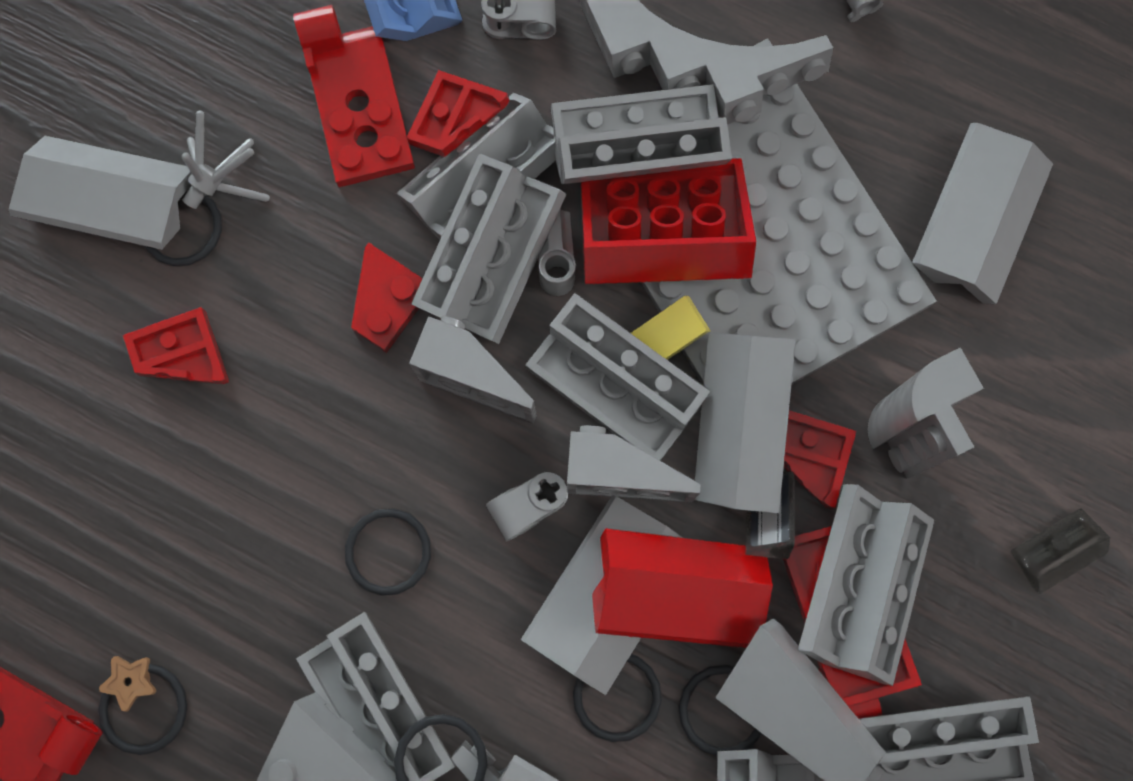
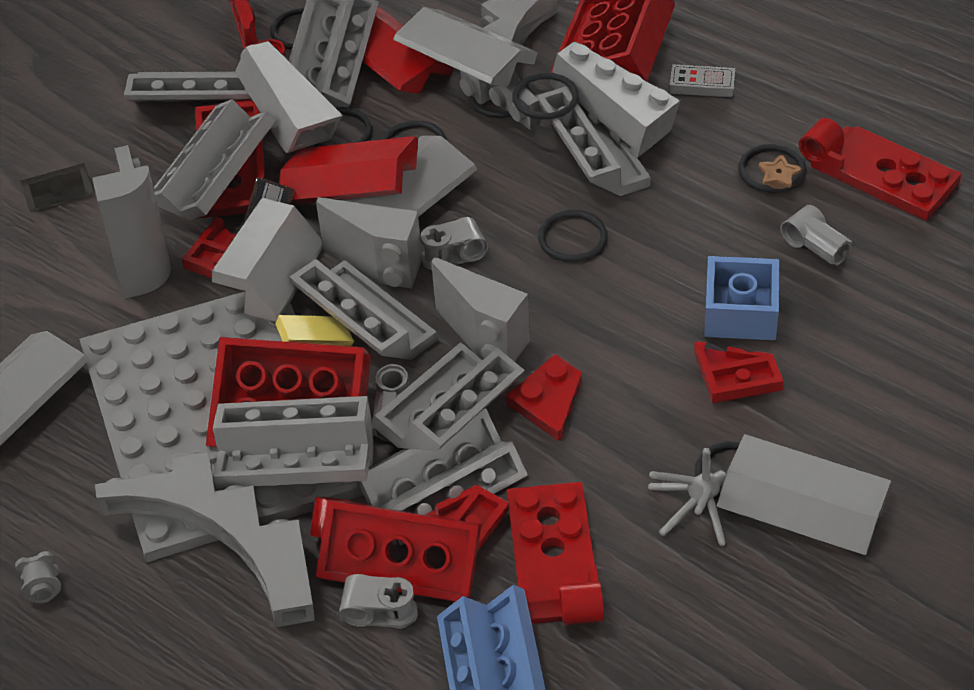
camera: 170 degrees left, 30 degrees down
(91, 583) = (810, 229): none -> light grey piece
(168, 444) = (742, 298): none -> medium blue brick
(514, 59) = (359, 539): none -> red hinge

